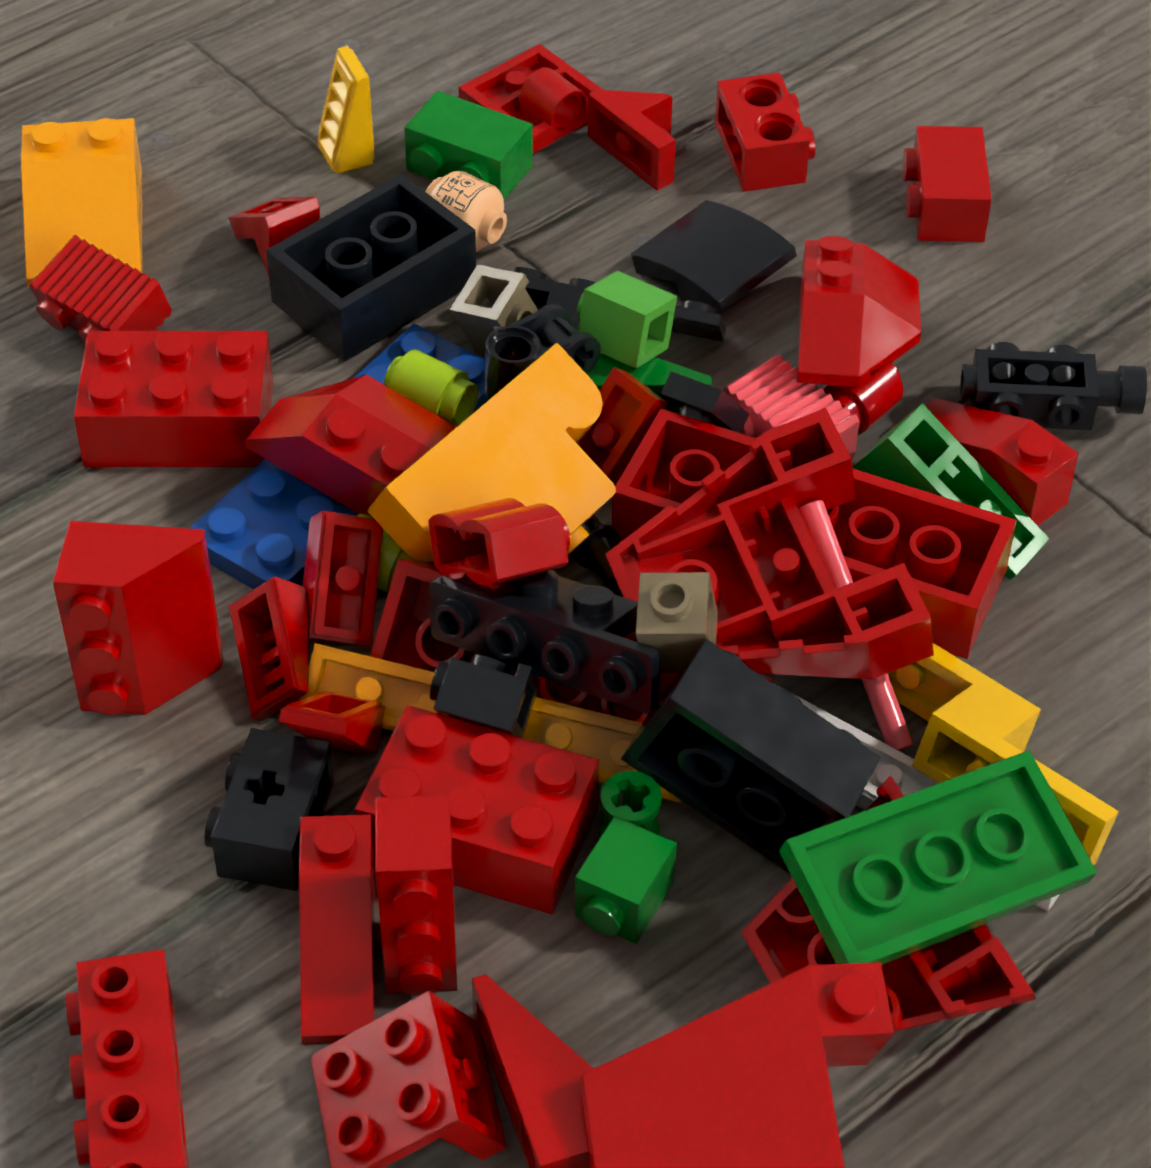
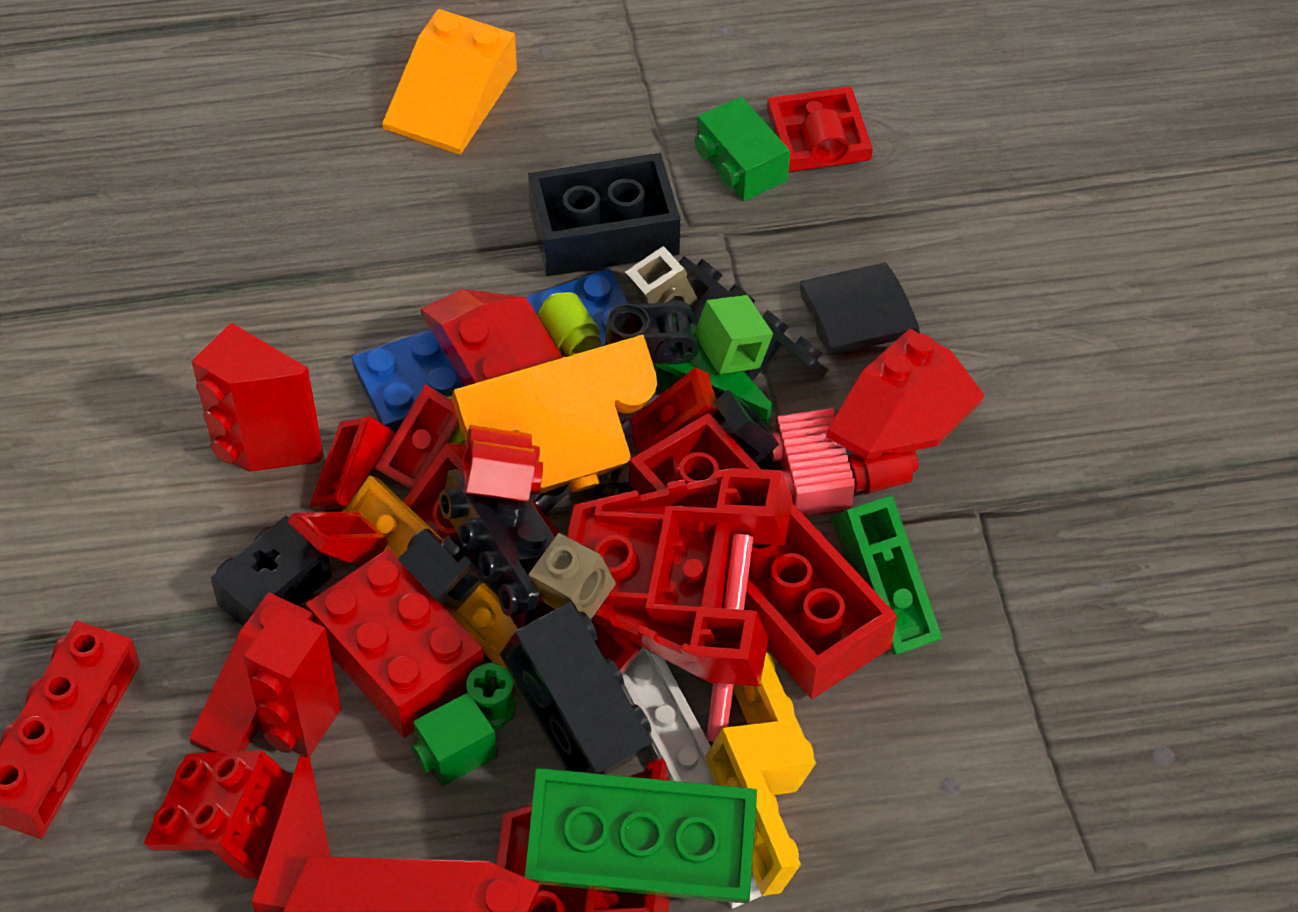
camera: 30 degrees right, 5 degrees up
(97, 292) = (411, 159): red brick -> none
(172, 398) = (406, 251): red brick -> none
(275, 221) = (563, 150): red slope -> none
(346, 119) = (666, 96): yellow slope -> none
(474, 202) = (701, 198): light nougat head -> none
(635, 132) = (873, 184): red slope -> none
(763, 131) = (966, 225): red brick -> none
(948, 183) = (1076, 327): red brick -> none
(1016, 453) = (944, 558): red slope -> none
(1051, 386) = (1020, 524): black brick -> none

